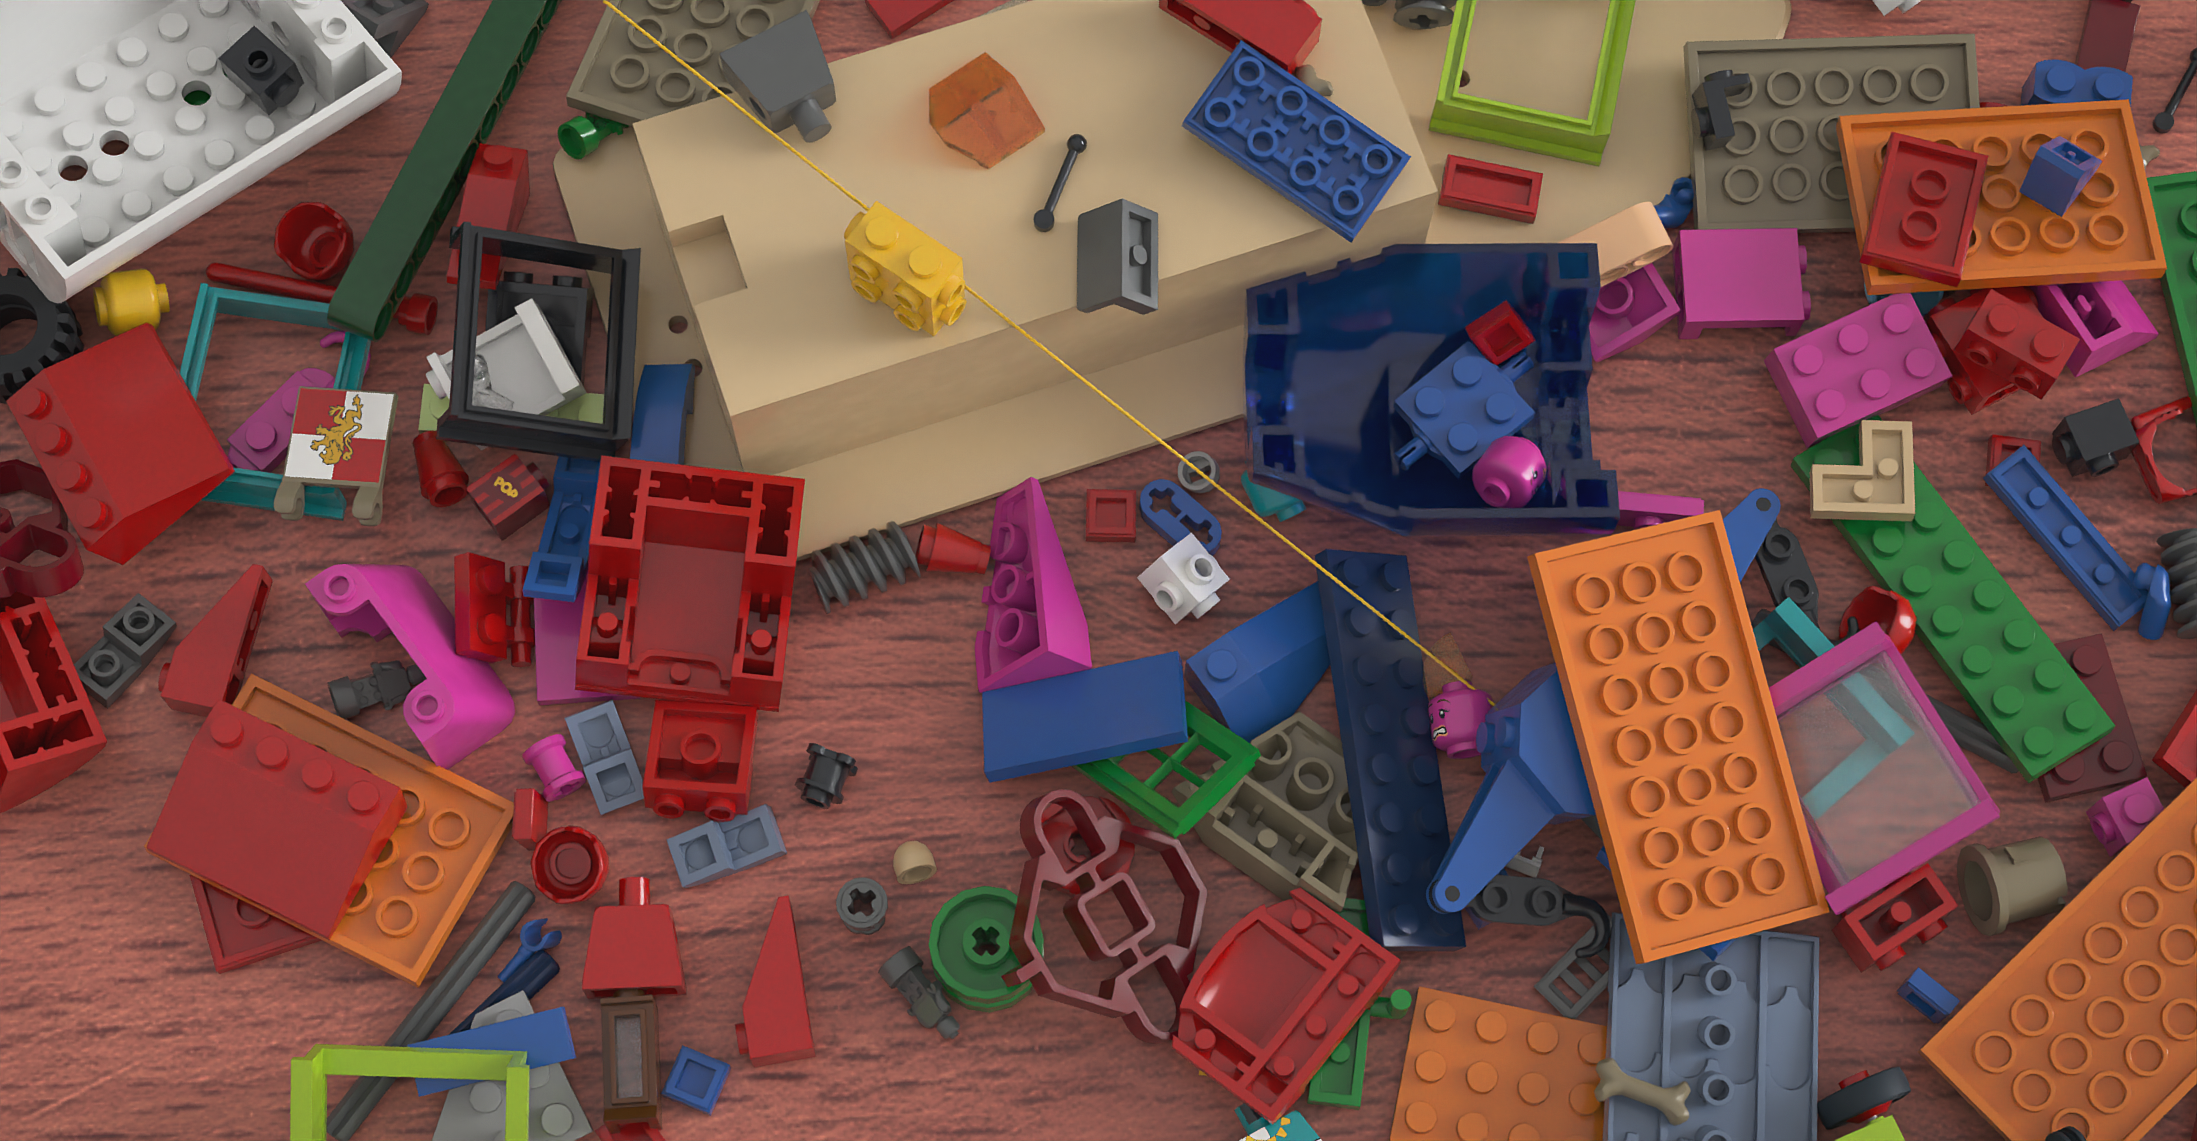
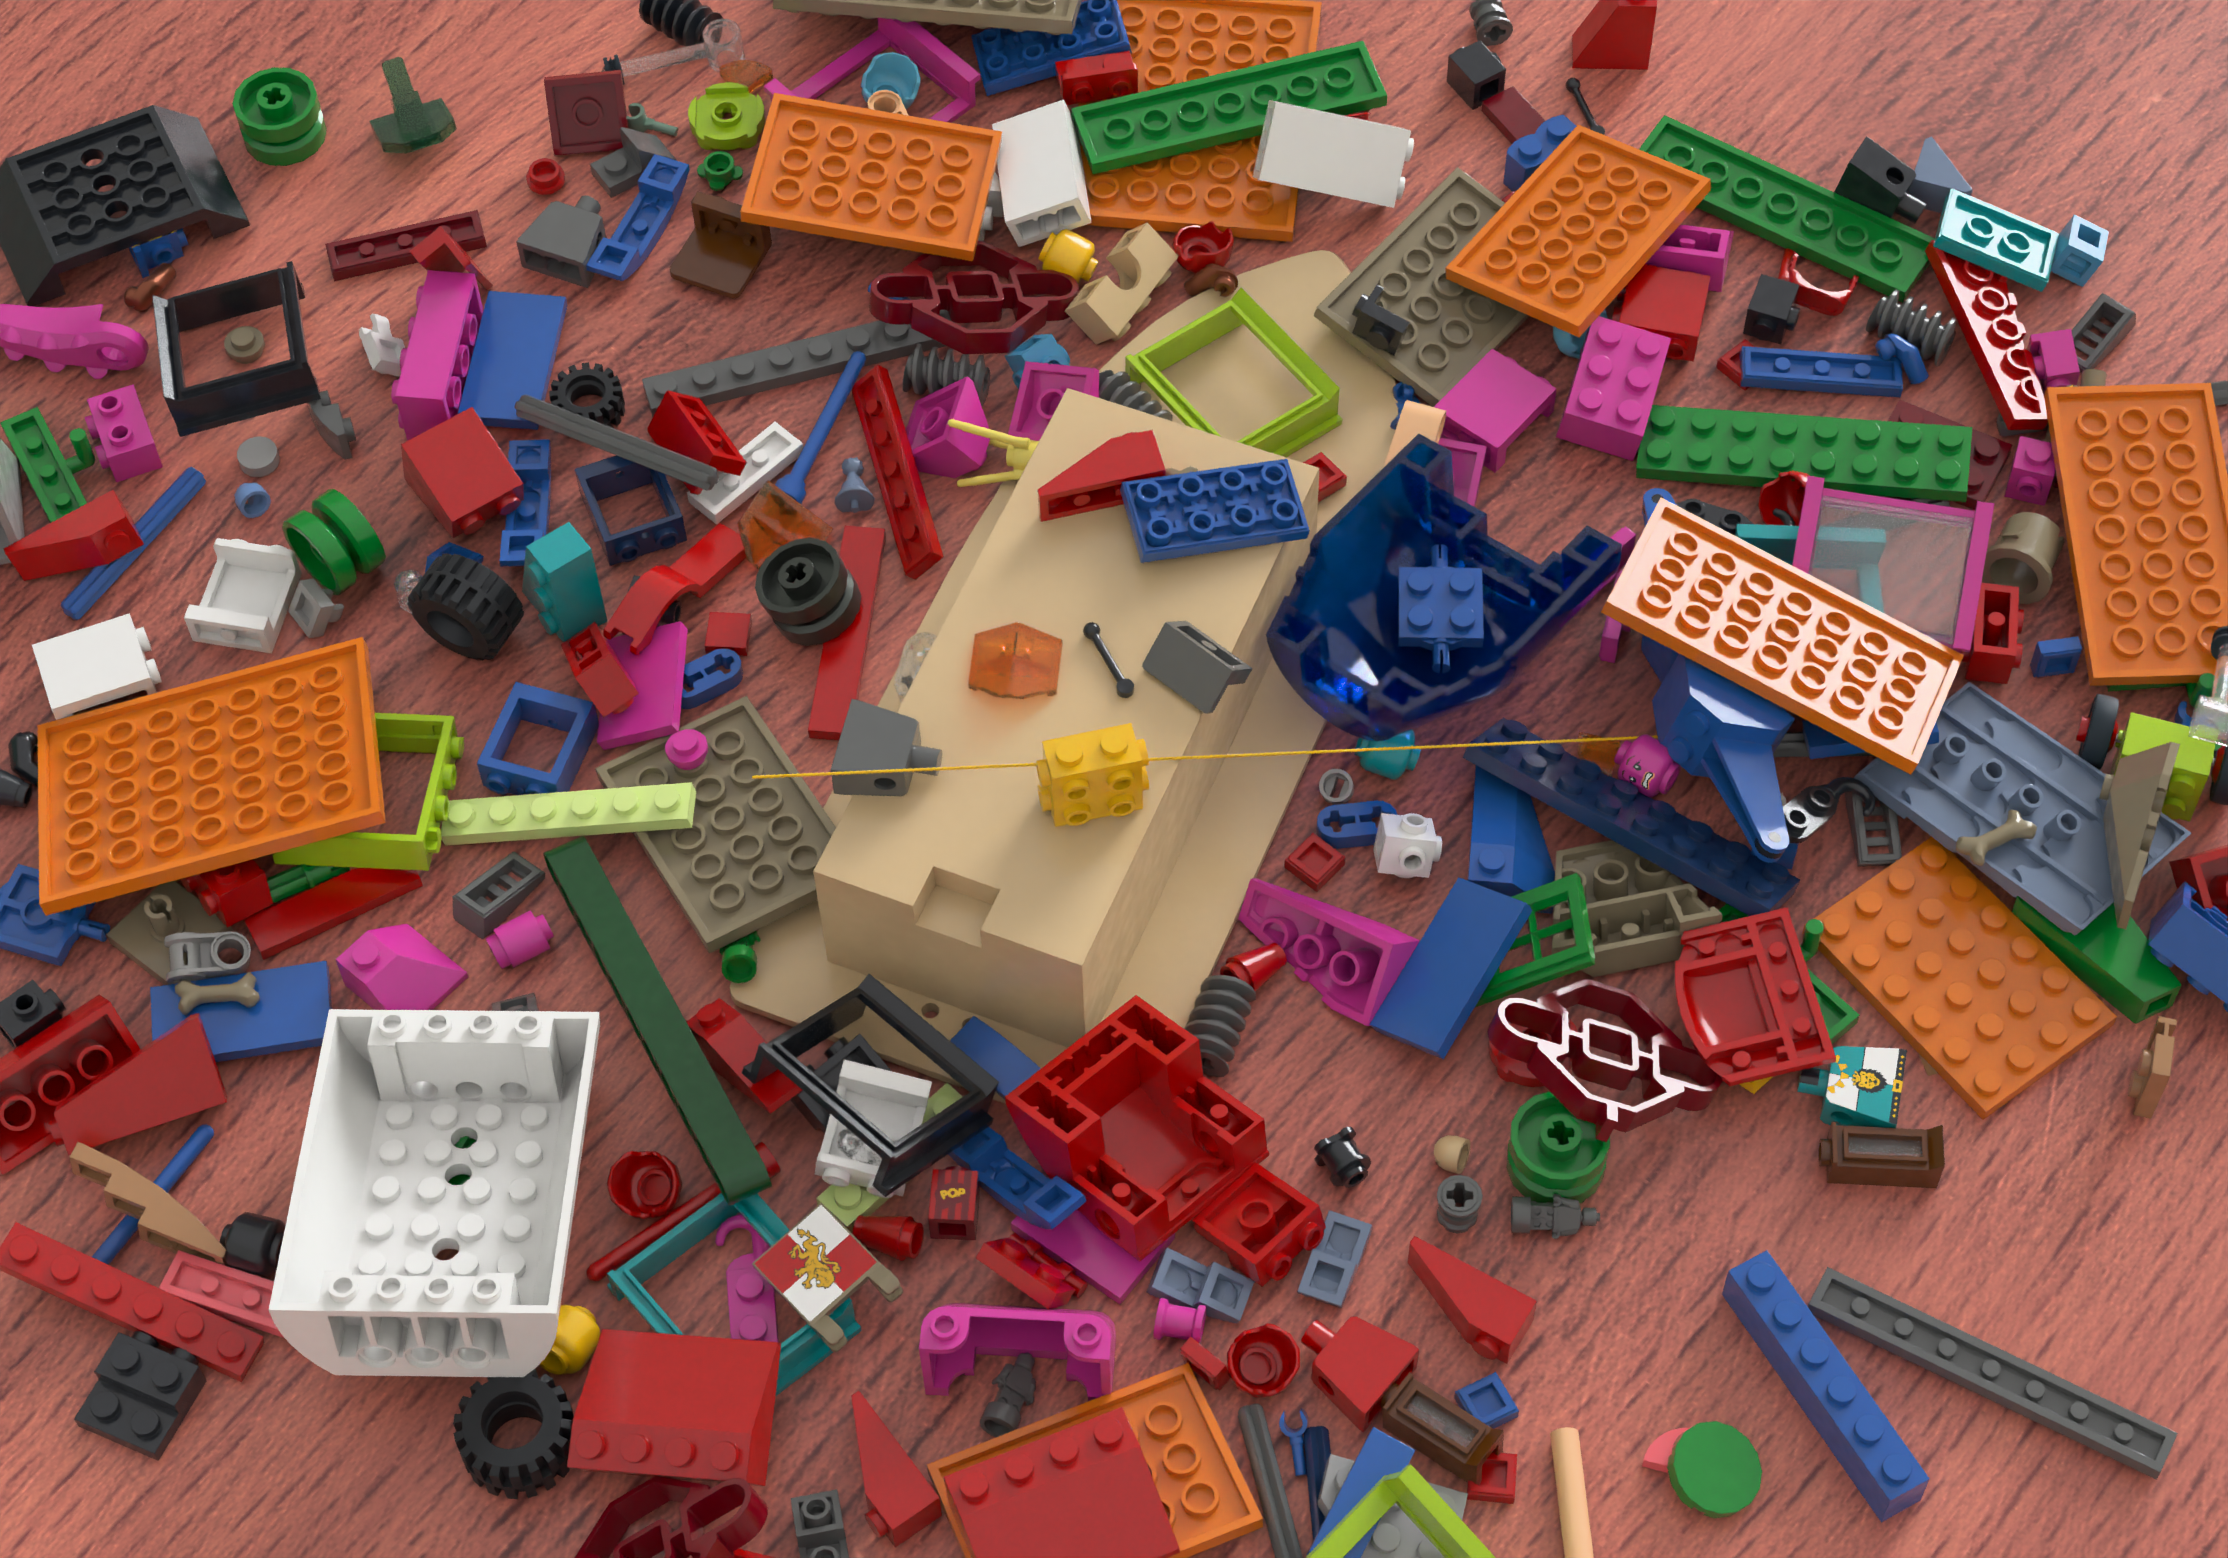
camera: 45 degrees left, 15 degrees down
(262, 71) = (496, 1111): black brick -> none
(1500, 333) = (1412, 544): red tile -> none
(1509, 472) = (1510, 608): dark pink head -> none
(1878, 487) = (1701, 428): tan plate -> none
(1924, 209) = (1554, 265): red tile -> none
(2016, 344) = (1685, 288): red brick -> none
(2058, 174) = (1601, 185): blue slope -> none

